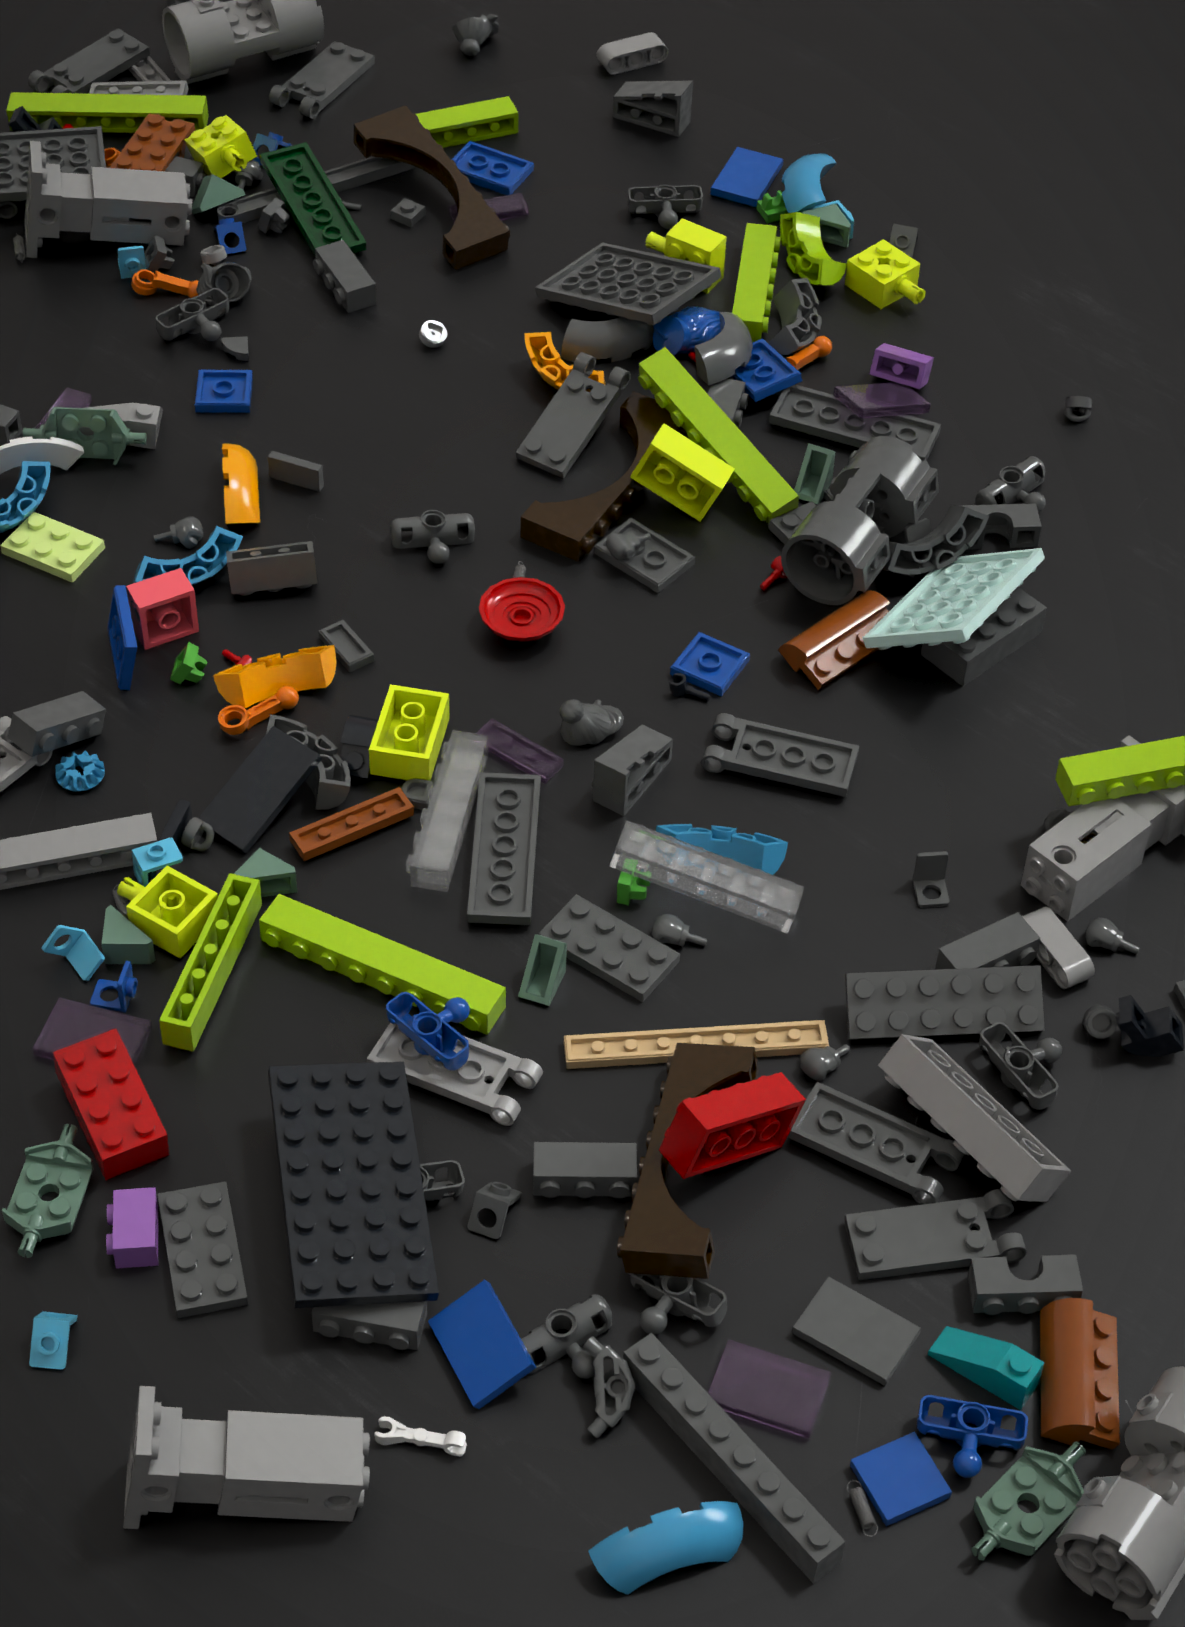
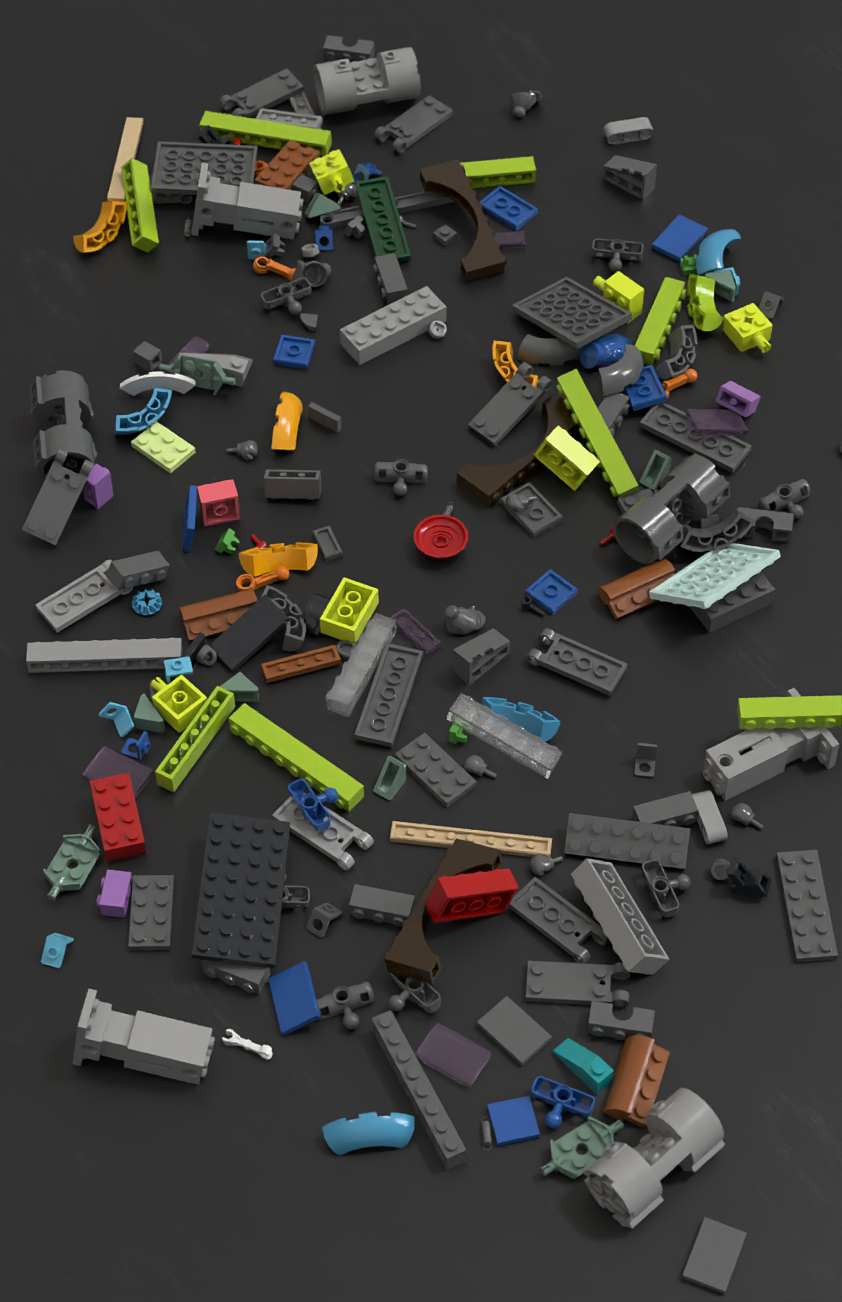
camera: 15 degrees right, 5 degrees up
(197, 771) = (216, 614): none -> dark orange brick
(200, 565) = (246, 476): dark azure brick -> none
(364, 335) = (392, 325): none -> light grey brick
(612, 1386) = (361, 1036): dark grey piece -> none

